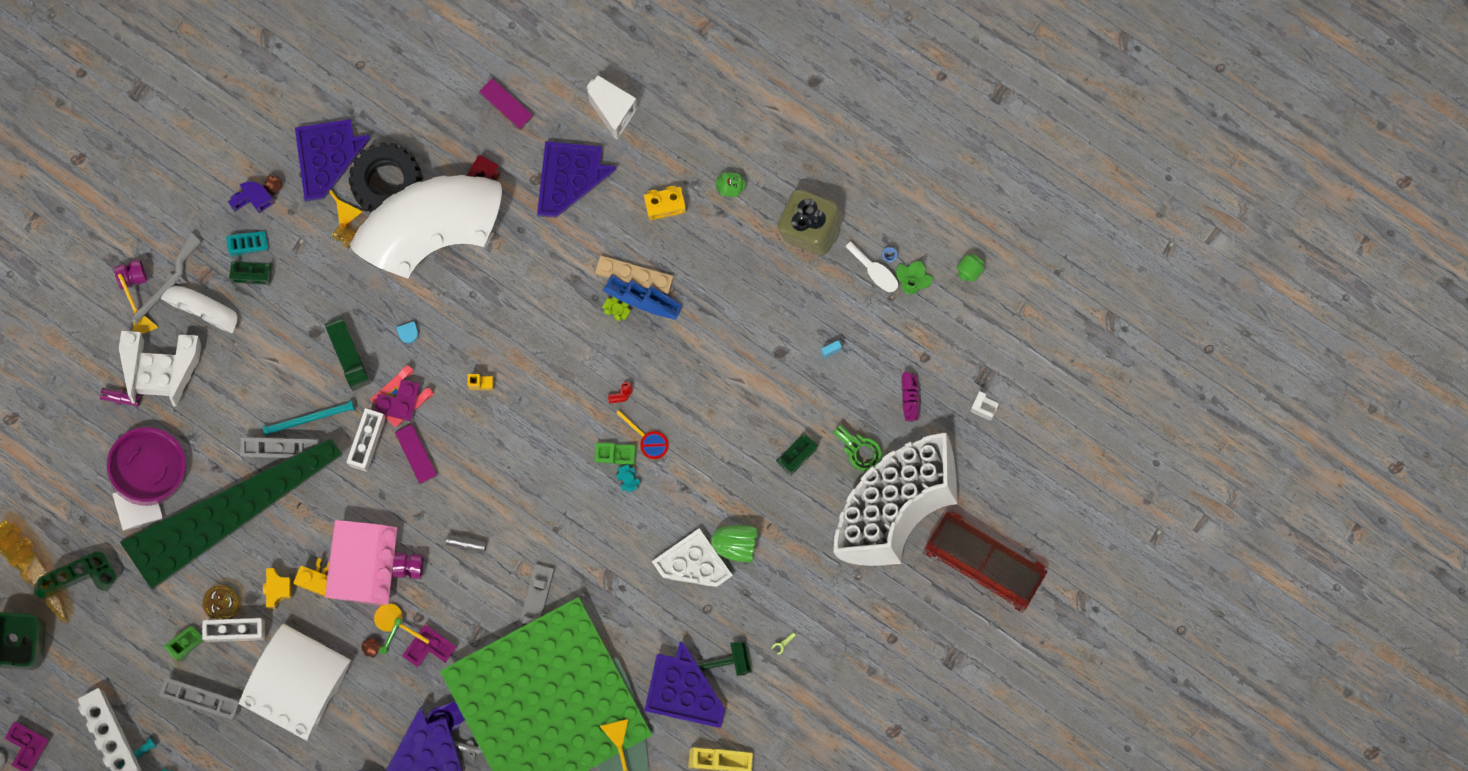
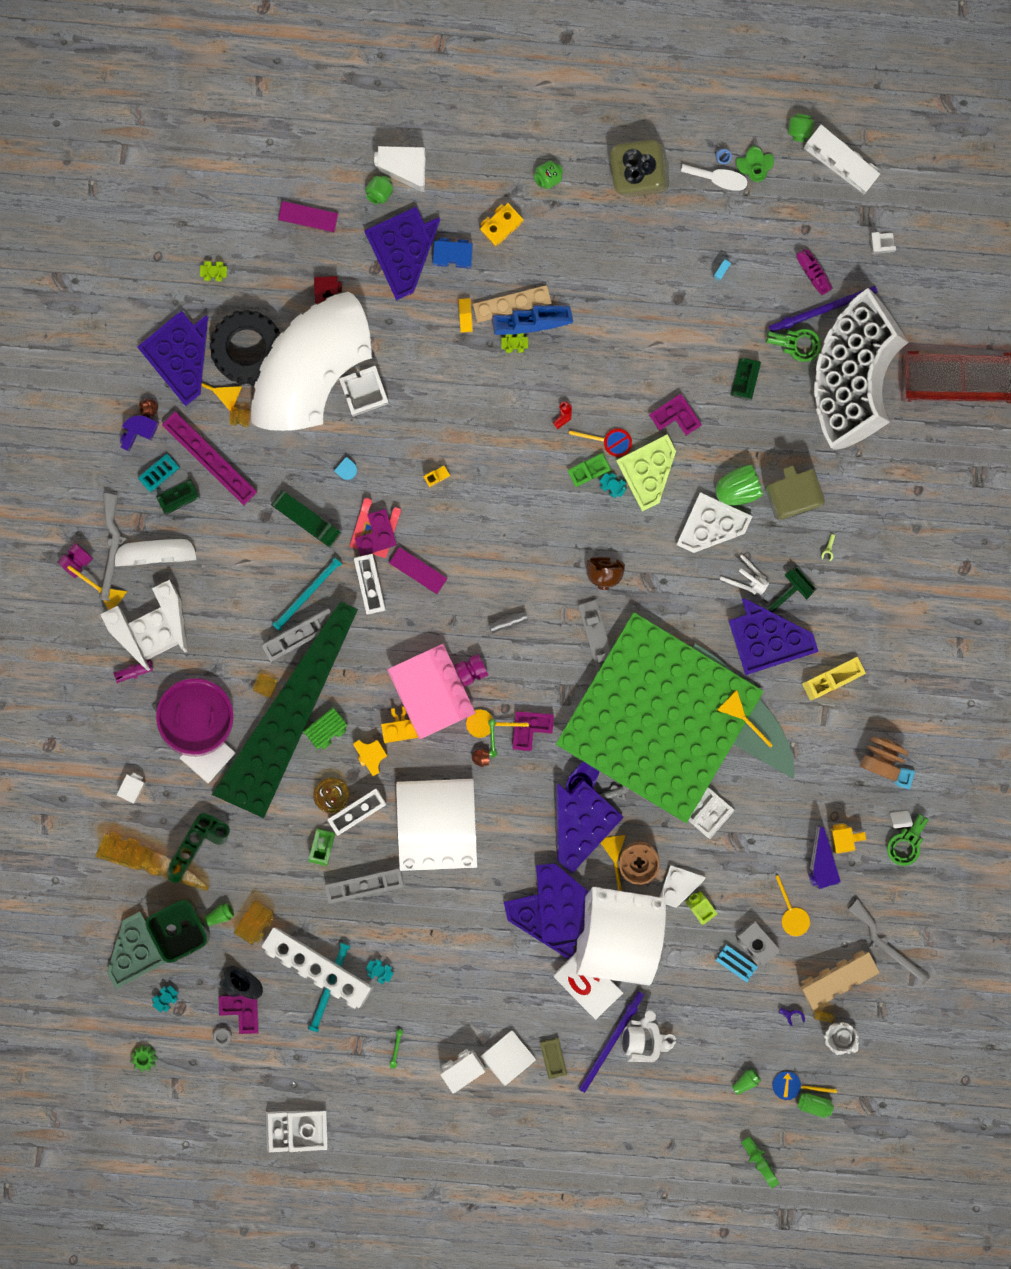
camera: 30 degrees left, 10 degrees up
(41, 721) = (241, 983): none -> black piece
(55, 495) = (131, 787): none -> white brick
(61, 650) = (220, 914): none -> bright green cone
(85, 675) = (254, 922): none -> clear yellow brick
(224, 475) = (265, 685): none -> clear yellow tile
(252, 542) = (325, 729): none -> bright green brick
(297, 256) = (209, 458): none -> magenta plate
(401, 105) = (209, 271): none -> lime piece
(463, 276) = (365, 392): none -> white piece
(574, 549) = (604, 572): none -> reddish brown cylinder
(578, 115) = (379, 189): none -> bright green head
(587, 261) = (465, 315): none -> yellow piece
(611, 204) = (453, 252): none -> blue brick
(665, 484) = (648, 471): none -> yellowish green plate
(702, 637) = (758, 582): none -> white plant
(719, 445) = (678, 411): none -> magenta plate
(779, 575) = (794, 494): none -> olive piece
(862, 427) = (788, 322): none -> dark purple bar
(989, 314) = (842, 159): none -> white wedge

